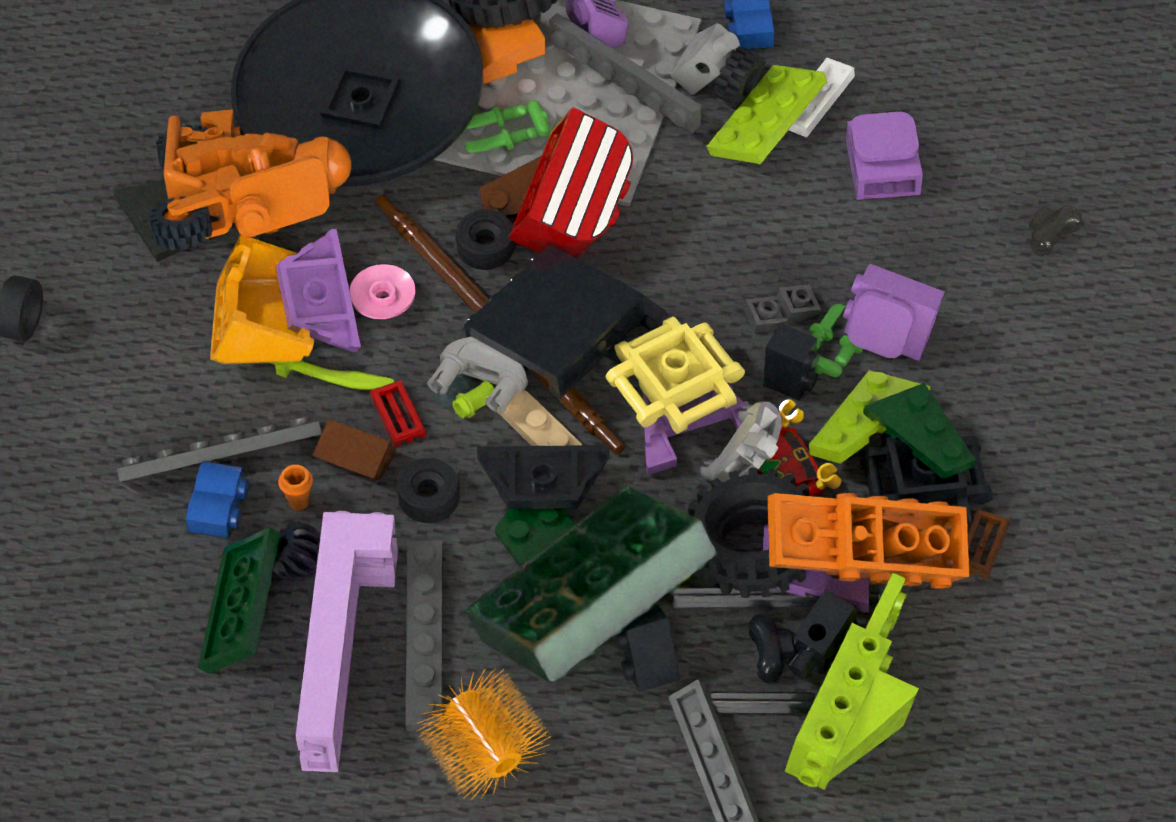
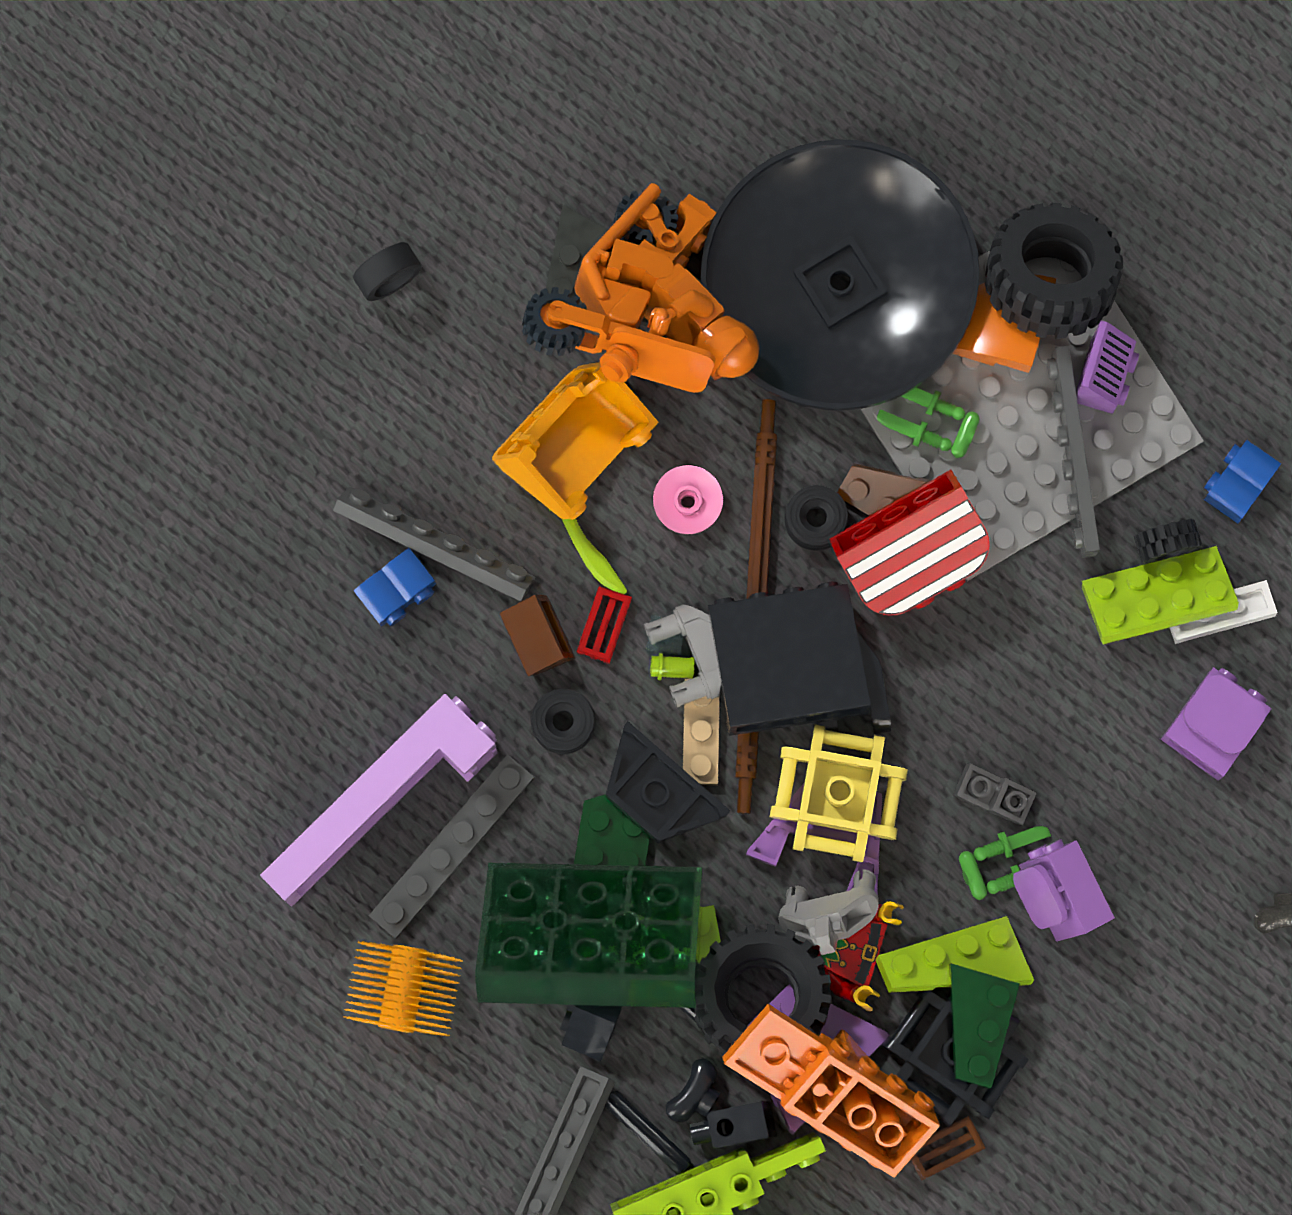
camera: 40 degrees right, 25 degrees up
(239, 600) = (333, 701): dark green plate -> none
(296, 486) = (458, 625): orange cone -> none
(297, 551) = (410, 693): black gear -> none
(318, 293) = (630, 462): medium lavender wing -> none
(711, 49) = (1157, 495): light grey torso -> none
(791, 362) = (942, 863): black brick -> none

